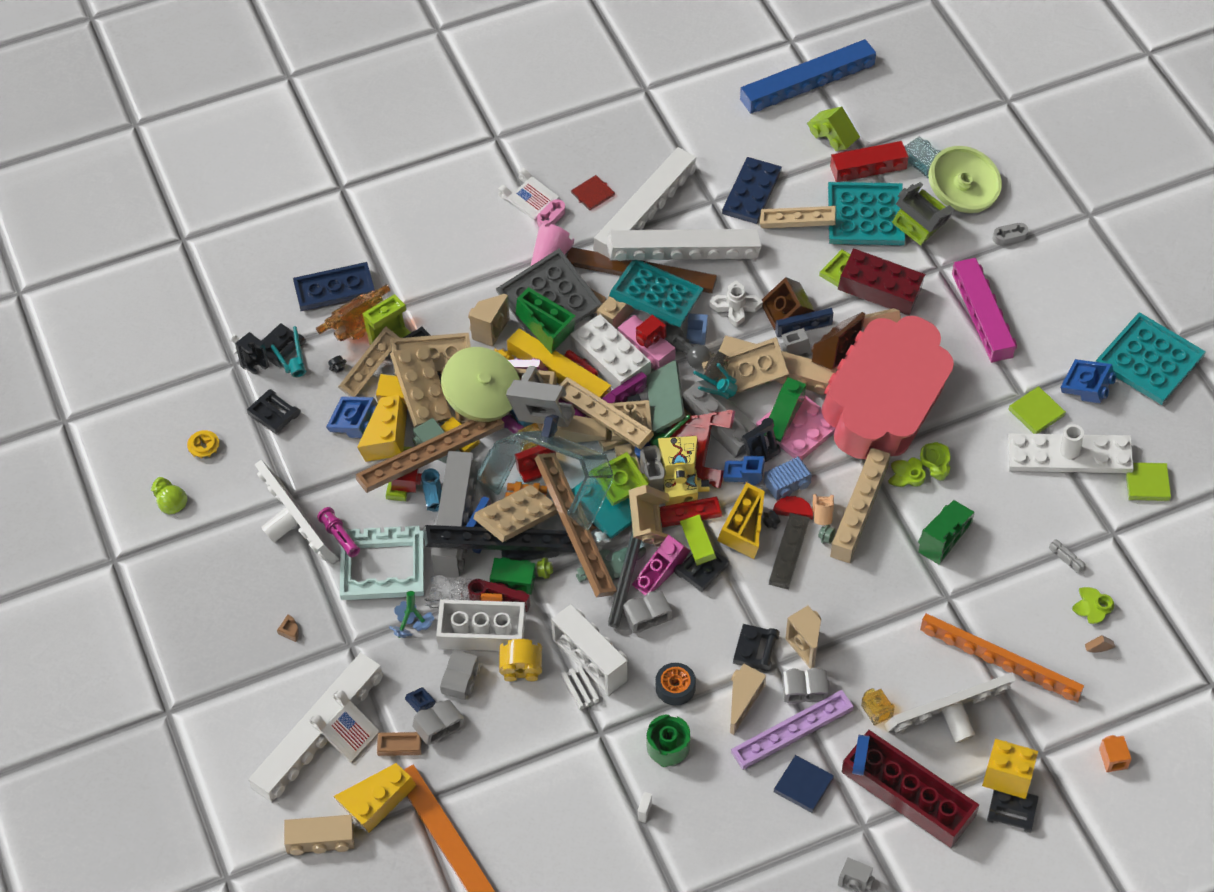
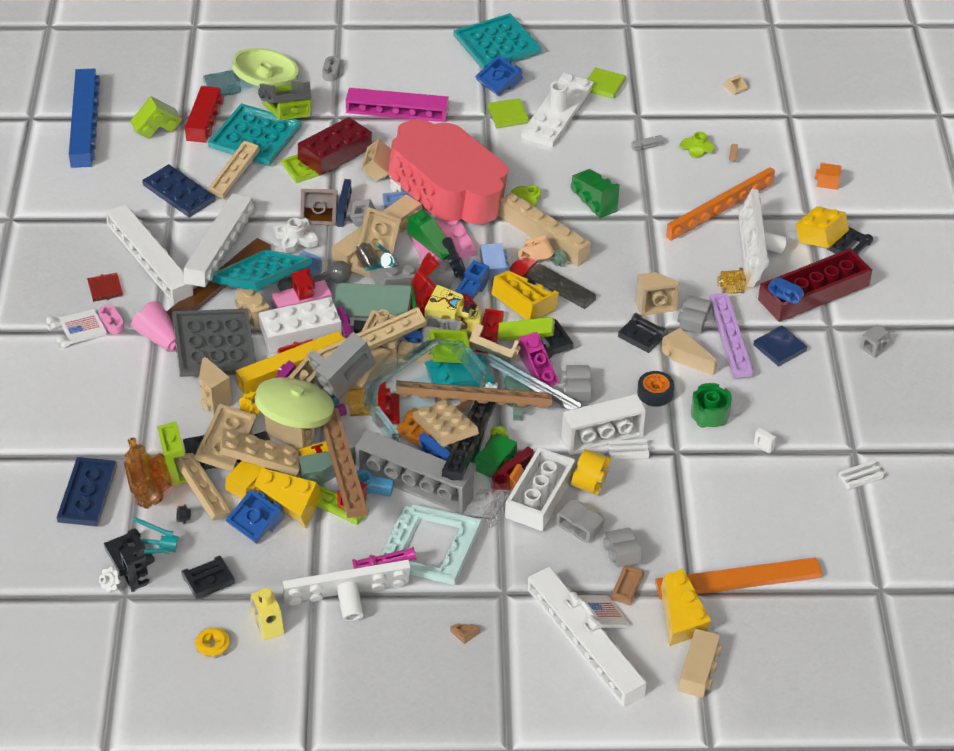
camera: 70 degrees left, 10 degrees down
(168, 496) = (260, 685): lime hair -> none
(240, 468) = (265, 605): none -> light yellow torso
(406, 613) = (509, 532): medium blue plant -> none
(420, 699) = (591, 556): dark blue tile -> none
(545, 318) = (245, 344): green wedge -> none
(550, 426) = (376, 364): dark blue tile -> none
(834, 345) = (384, 181): reddish brown slope -> none
(937, 459) = (525, 175): lime hair -> none

